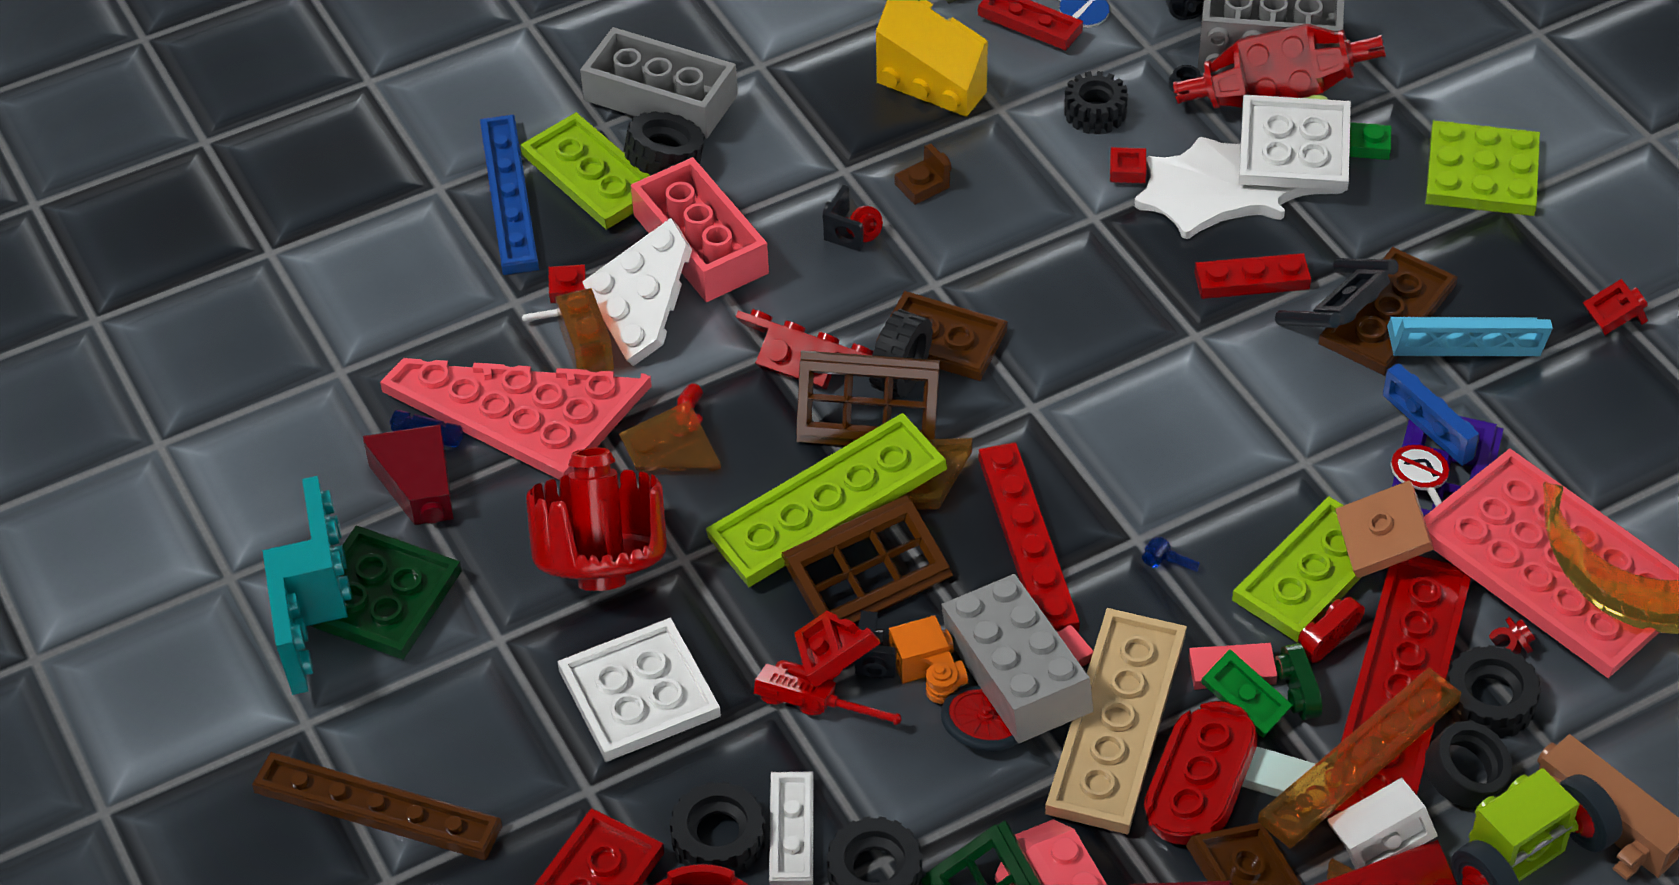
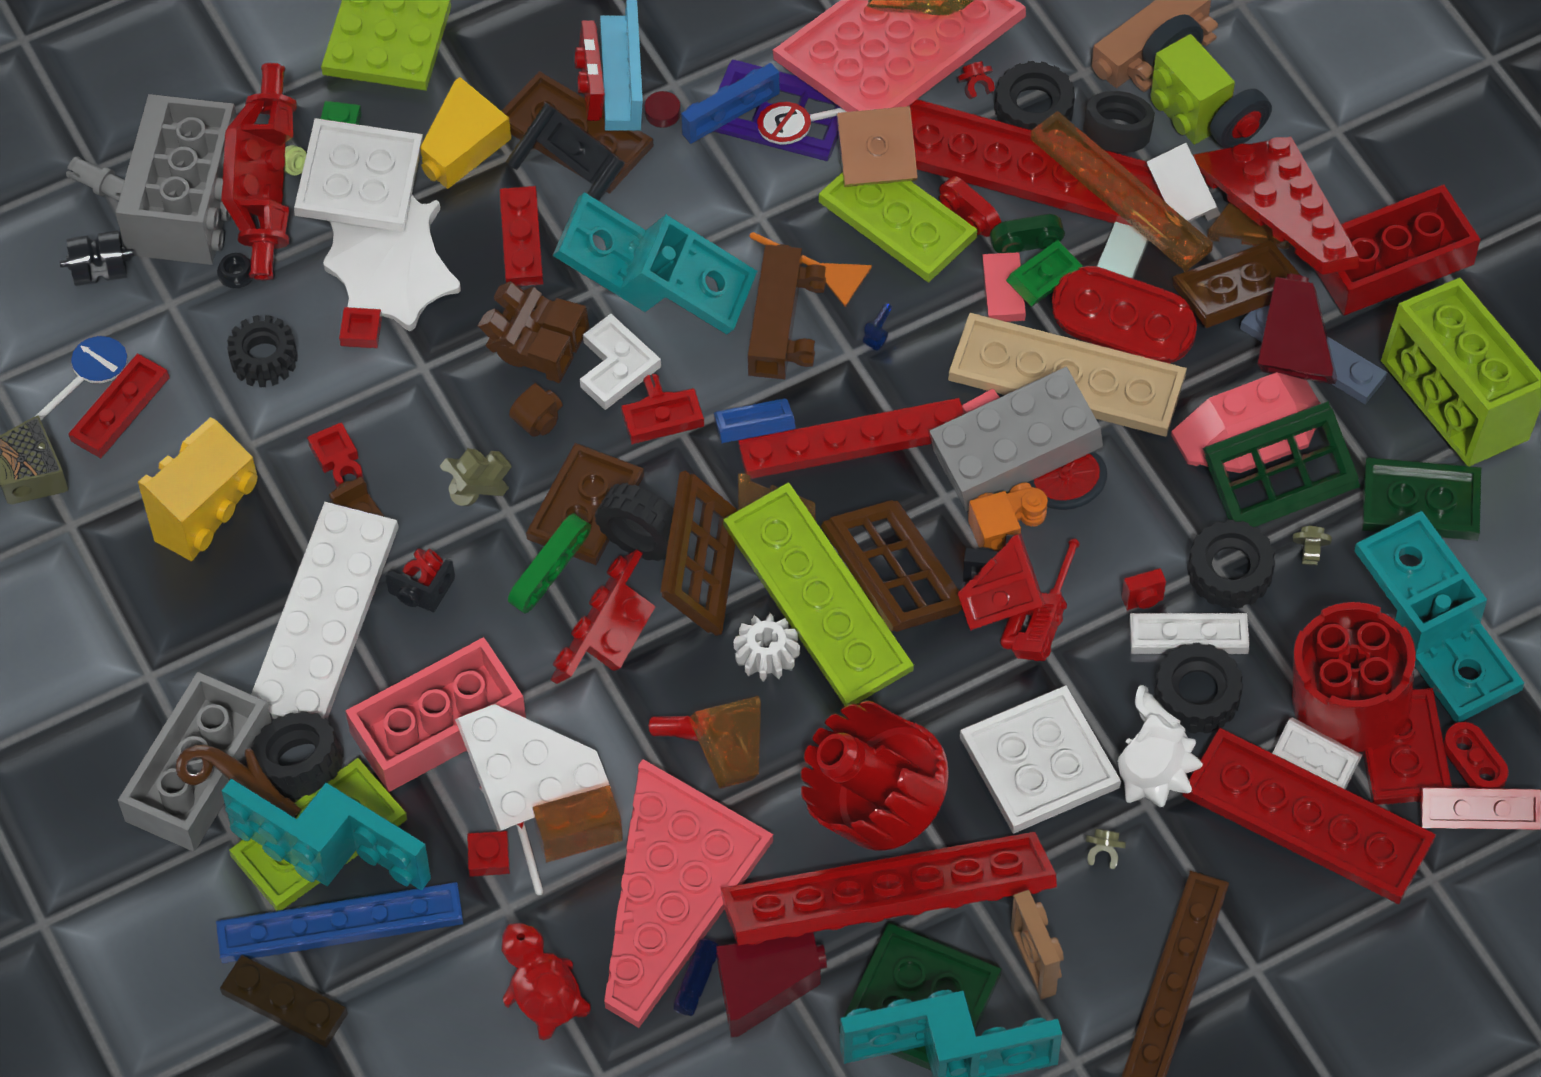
camera: 90 degrees left, 10 degrees up
(414, 666) = (1038, 950): none -> medium nougat plate
(428, 317) = (542, 982): none -> red animal
(437, 163) = (283, 1001): none -> dark brown plate
(491, 558) = (887, 888): none -> red plate
(536, 743) = (1105, 841): none -> olive plate
(564, 149) = (326, 835): none -> teal bracket
(633, 780) = (1157, 754): none -> white head
(638, 67) = (251, 777): none -> reddish brown plant
(770, 463) = (760, 634): none -> white gear
(811, 157) = (325, 611): none -> white plate
(837, 780) = (1143, 589): none -> red plate
(859, 298) = (549, 563): none -> green beam
(956, 242) = (476, 475): none -> olive hips
(987, 155) = (335, 452): none -> red plate
(1039, 289) = (536, 410): none -> reddish brown plate
(1040, 454) = (754, 420): none -> blue tile
(1045, 382) = (661, 413): none -> red plate
(1101, 354) = (623, 365): none -> white plate
(1131, 283) = (535, 330): none -> reddish brown hips
(1176, 467) = (776, 309): none -> reddish brown brick
(1212, 359) = (655, 263): none -> teal bracket
(1235, 528) = (840, 278): none -> orange piece
(1364, 219) = (462, 135): none -> yellow slope
(1431, 373) = (662, 109): none -> dark red tile
(1456, 303) = (590, 77): none -> red plate

